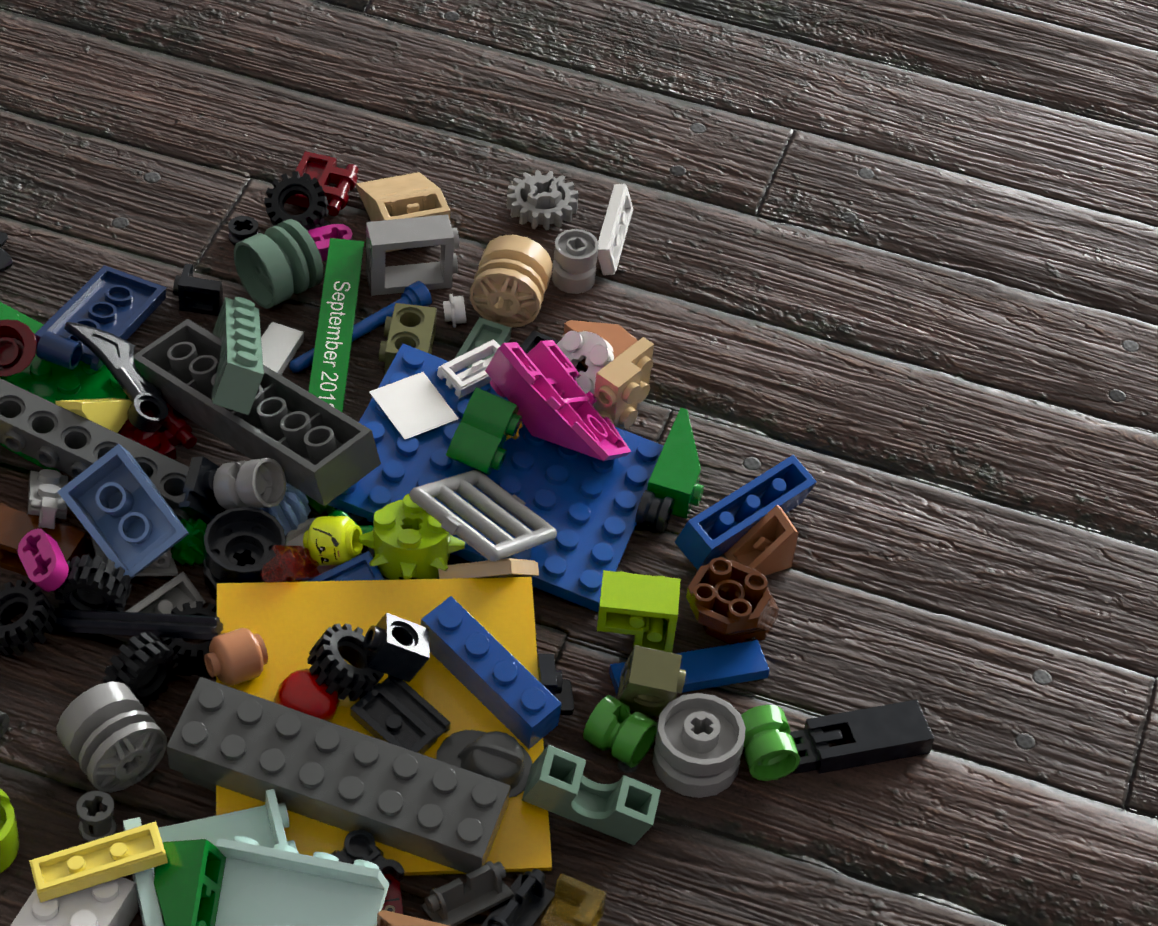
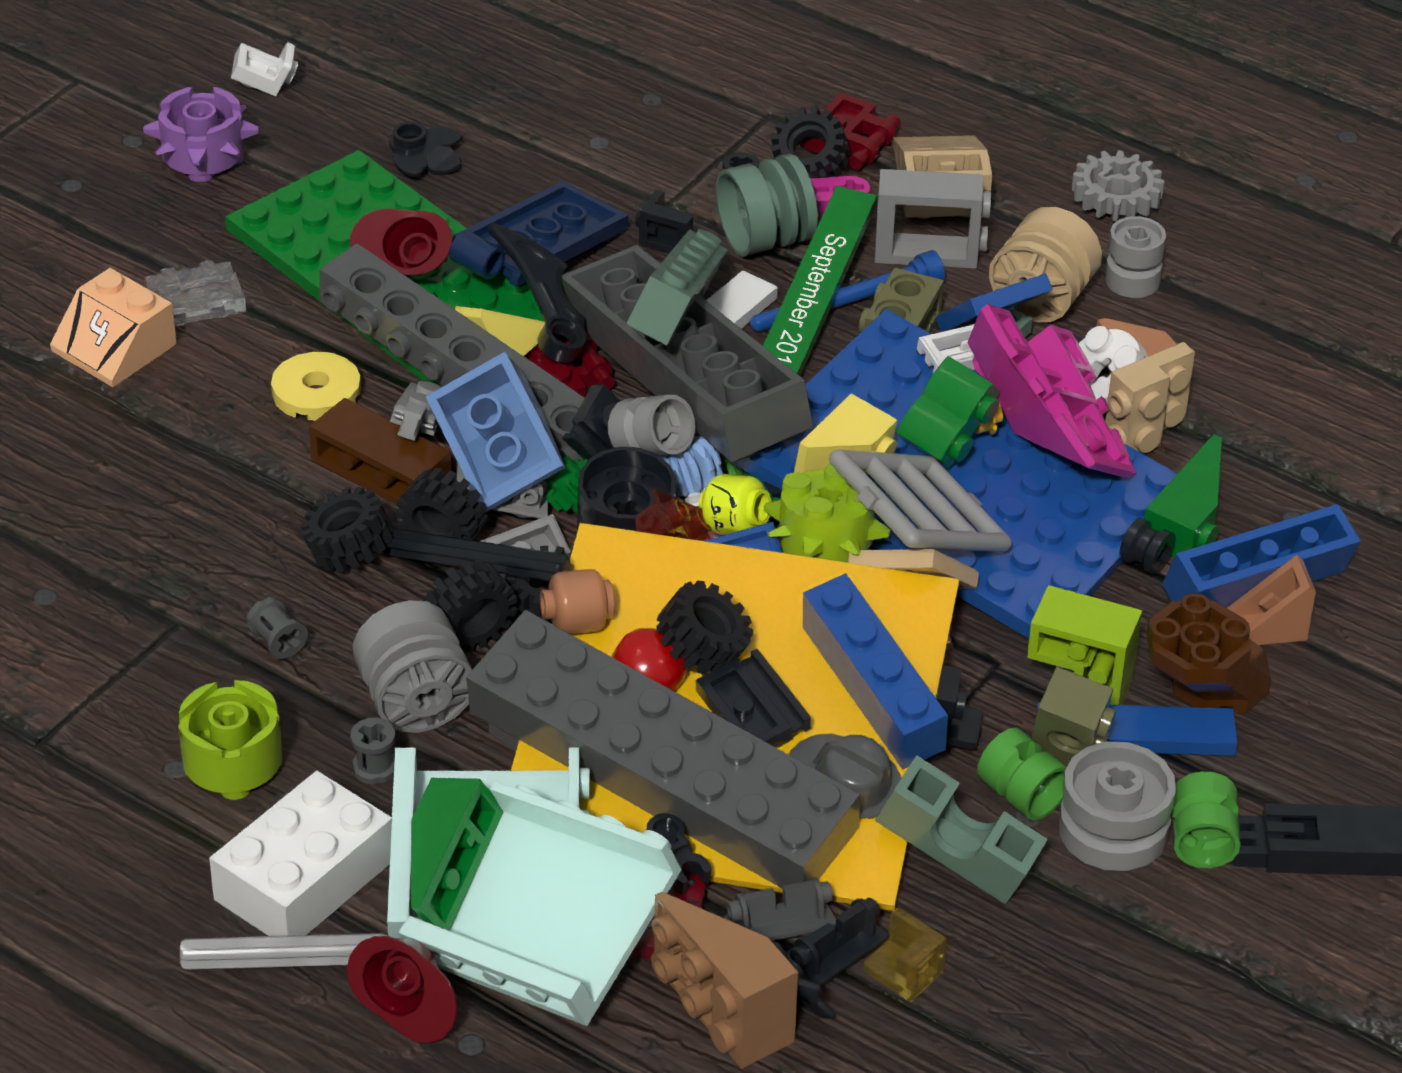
camera: 20 degrees right, 5 degrees down
(47, 557) = (389, 467): dark pink beam -> none
(98, 861) = (353, 783): light yellow tile -> none
(397, 647) = (765, 618): black brick -> none
(411, 465) = (848, 427): none -> light yellow slope
(414, 405) = (877, 374): white sticker -> none
(454, 310) = (968, 287): white plate -> none
(486, 326) = (1005, 298): none -> blue tile
(614, 229) = (1198, 230): white tile -> none

